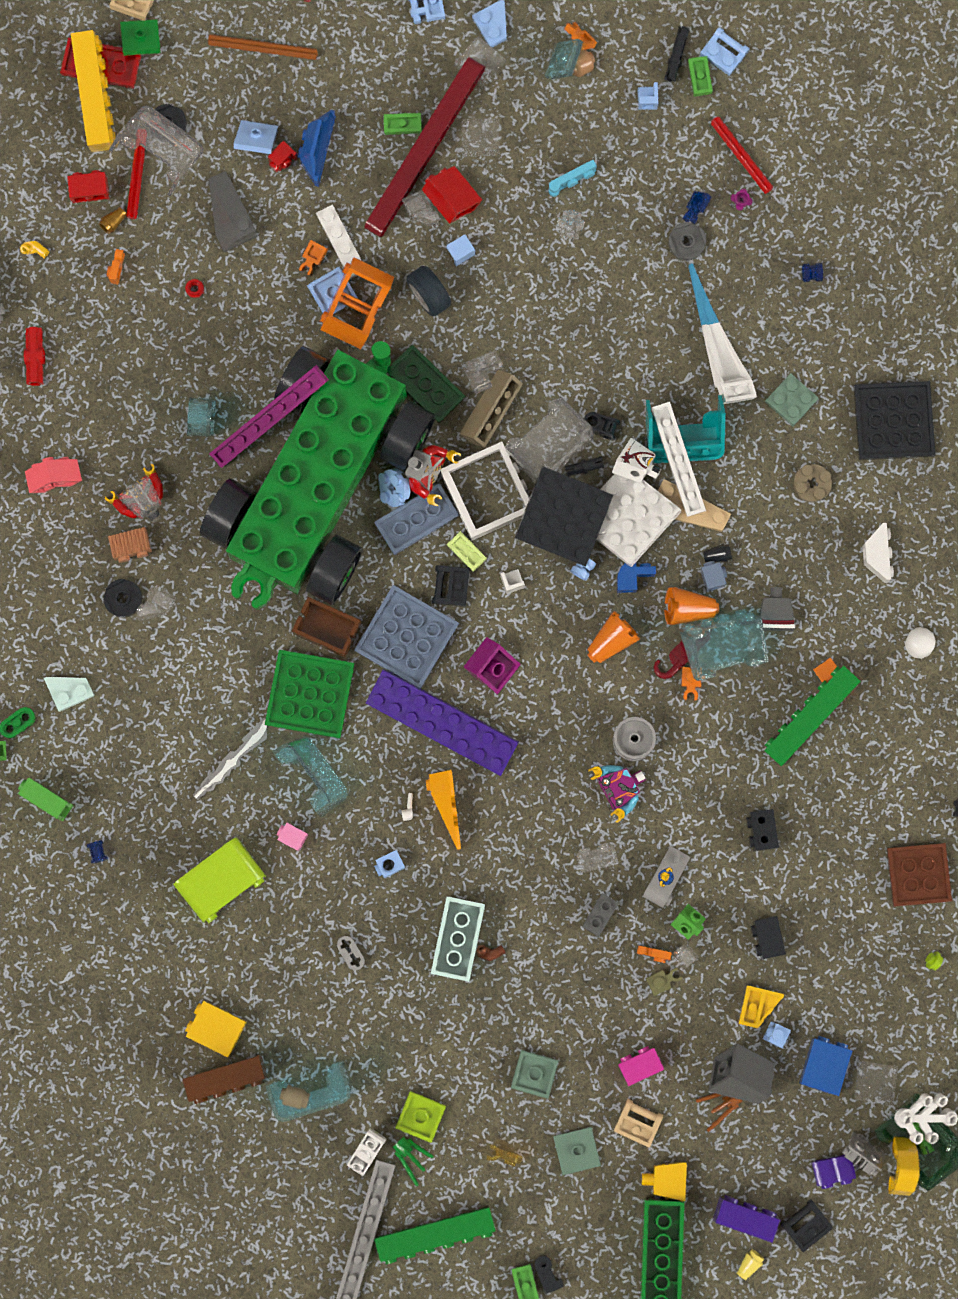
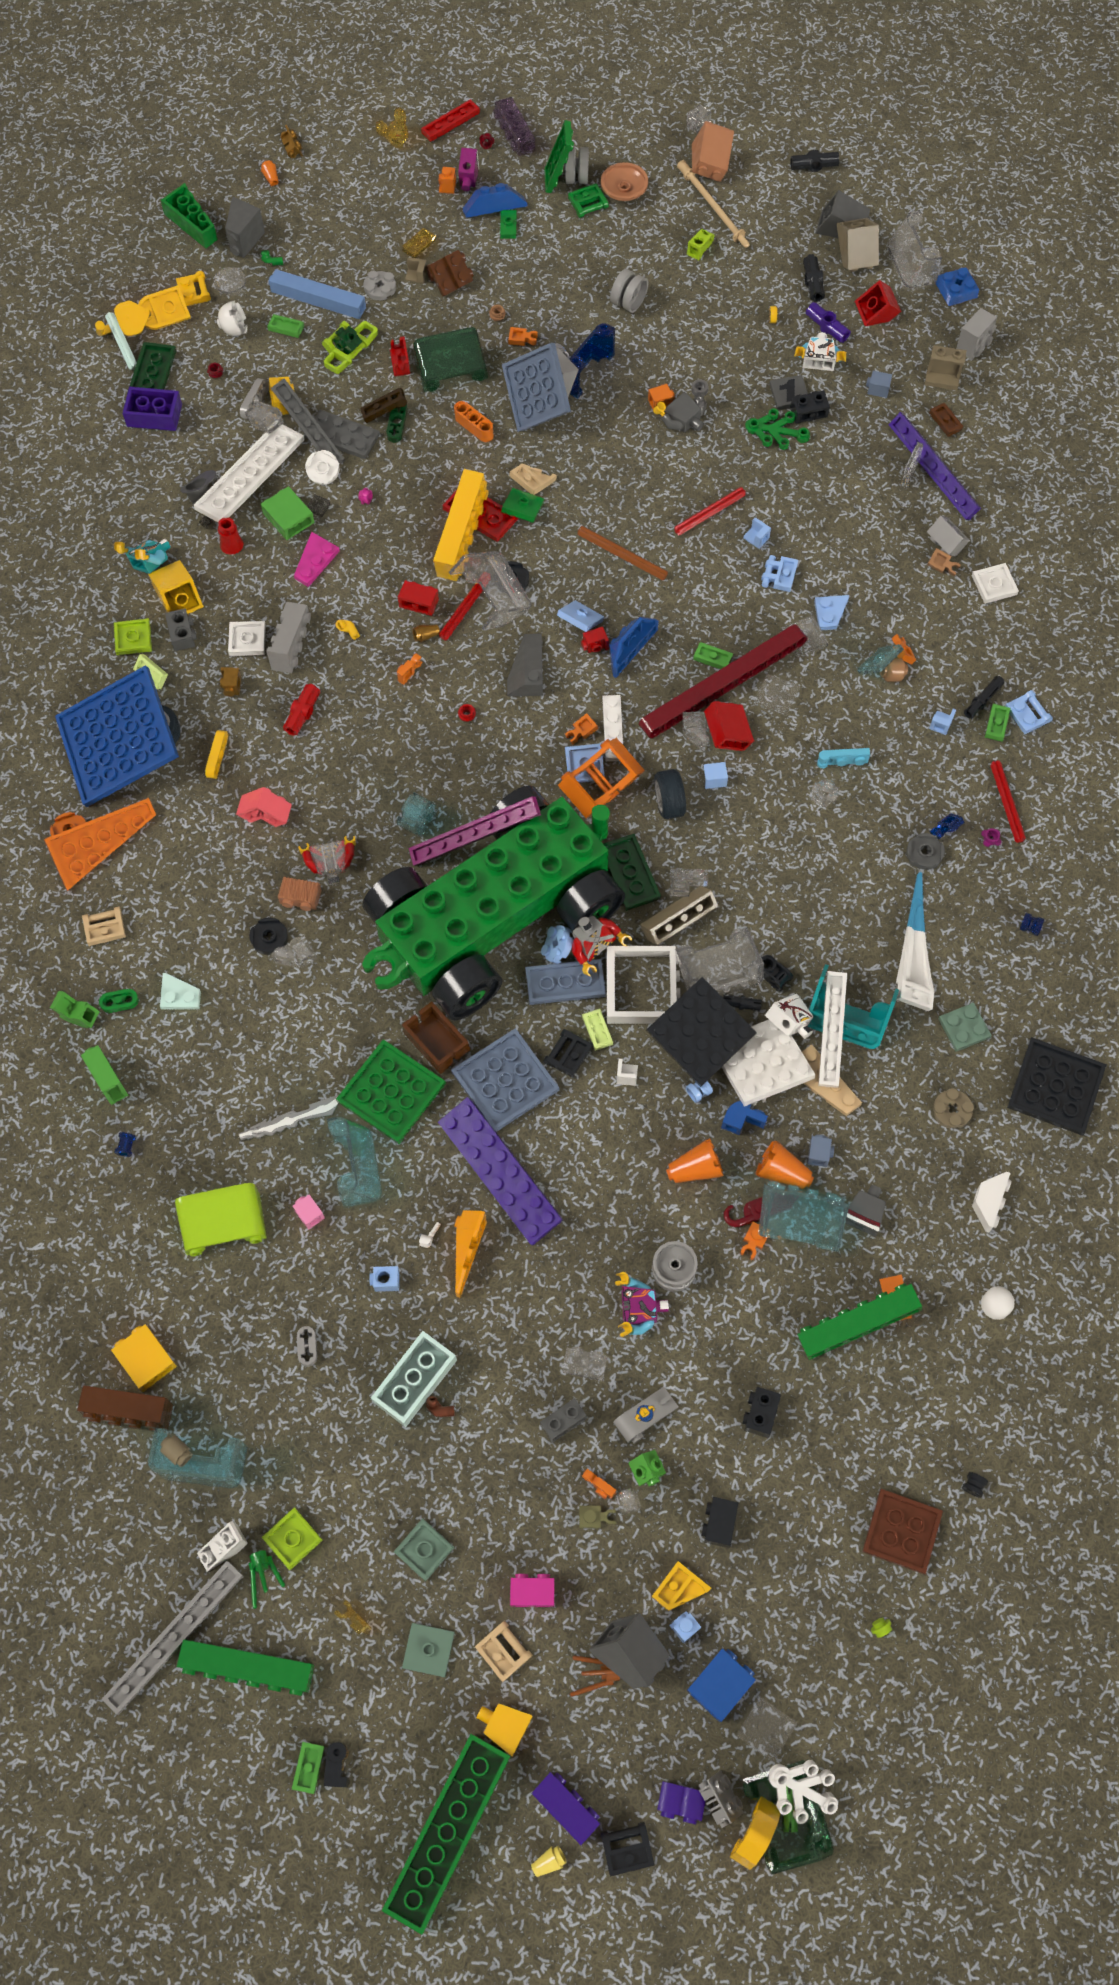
camera: 25 degrees right, 15 degrees down
(492, 665) = (572, 1140): magenta slope -> none
(720, 553) = (837, 1133): black cone -> none

